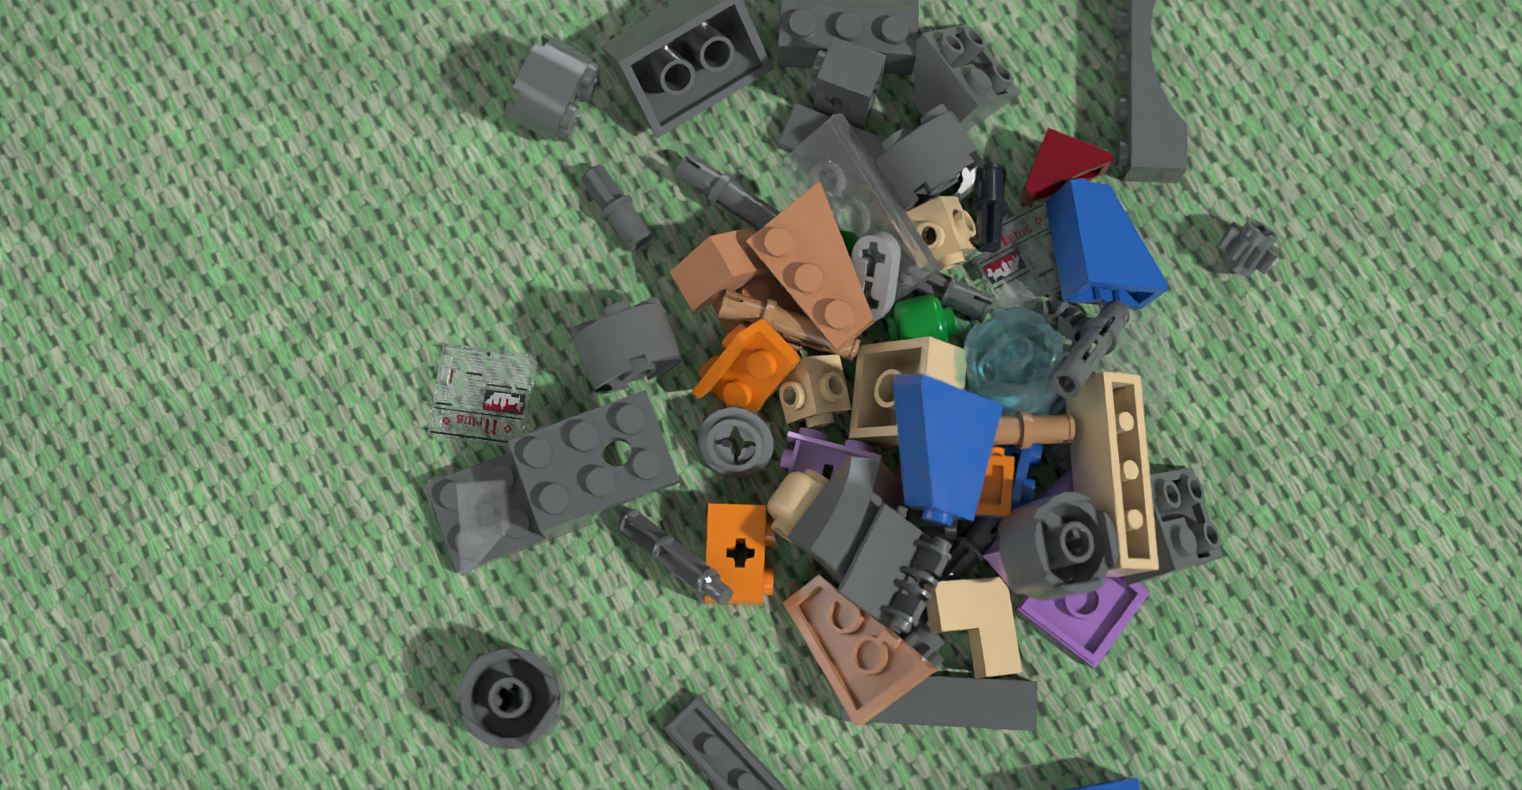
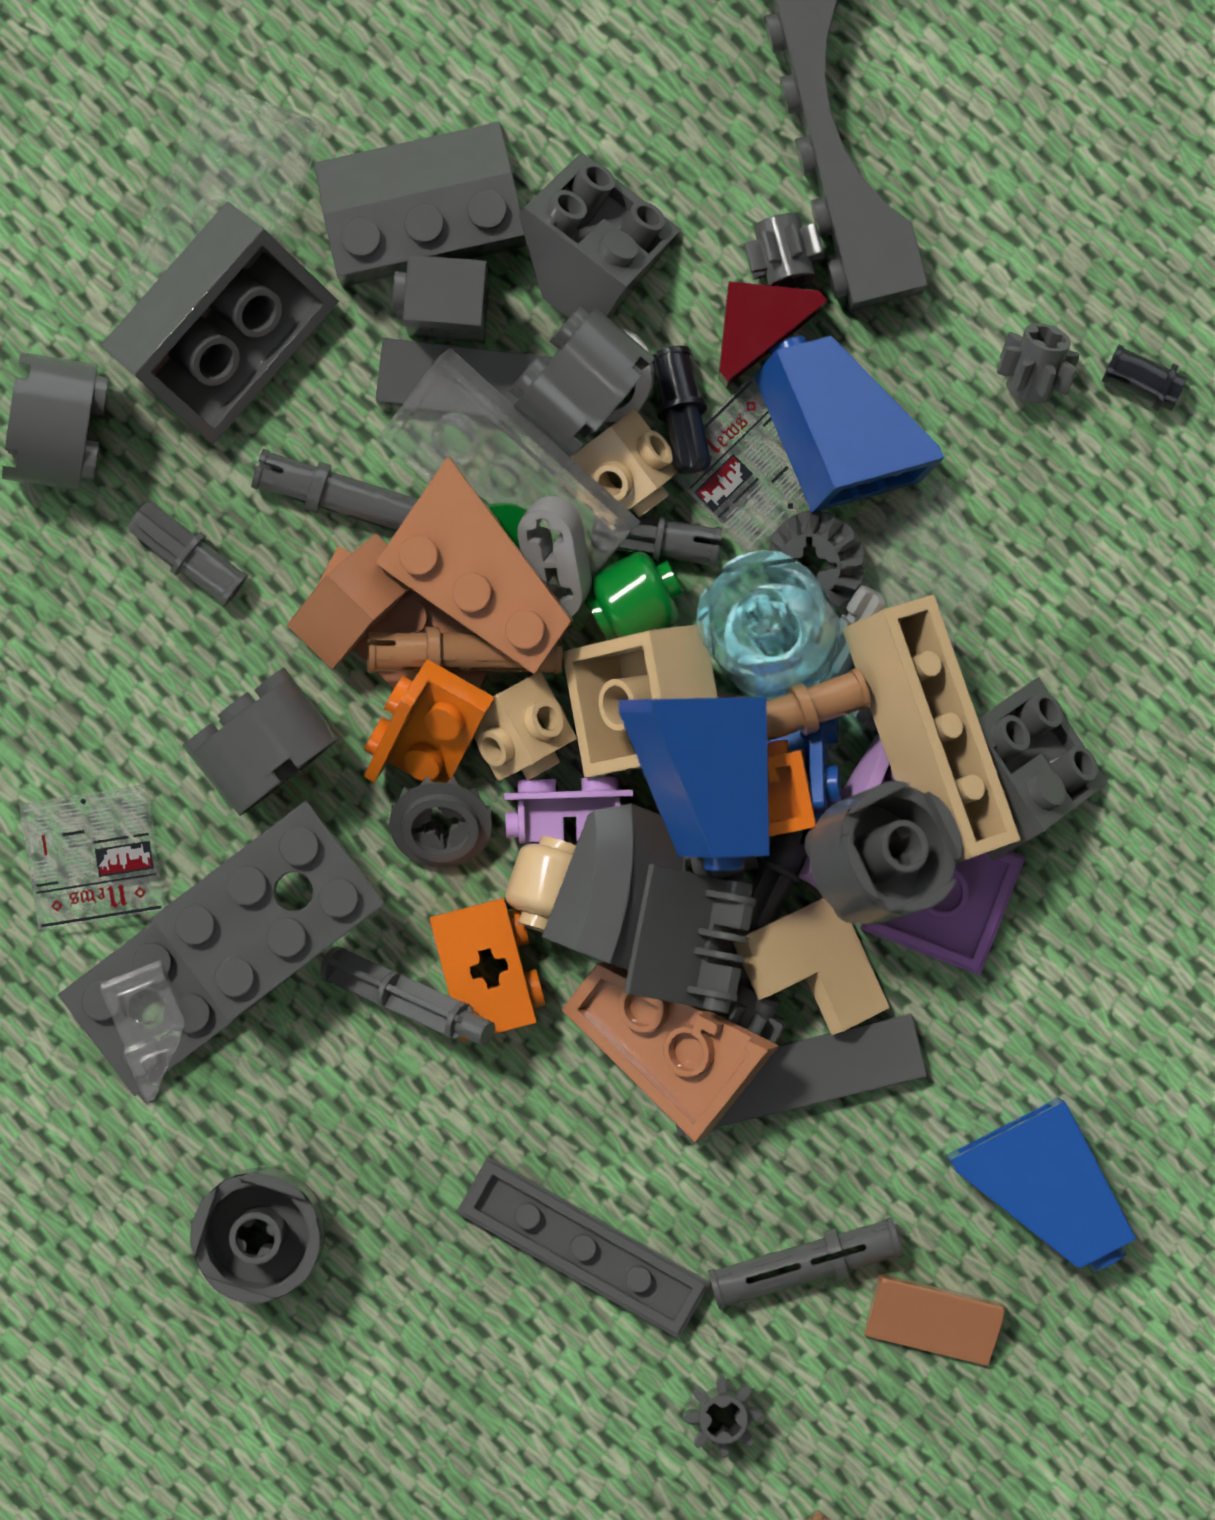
camera: 15 degrees left, 10 degrees up
(1073, 372) = (879, 526): dark grey pin -> none
(1091, 120) = (784, 251): none -> dark grey gear
(1321, 281) = (1145, 378): none -> black pin

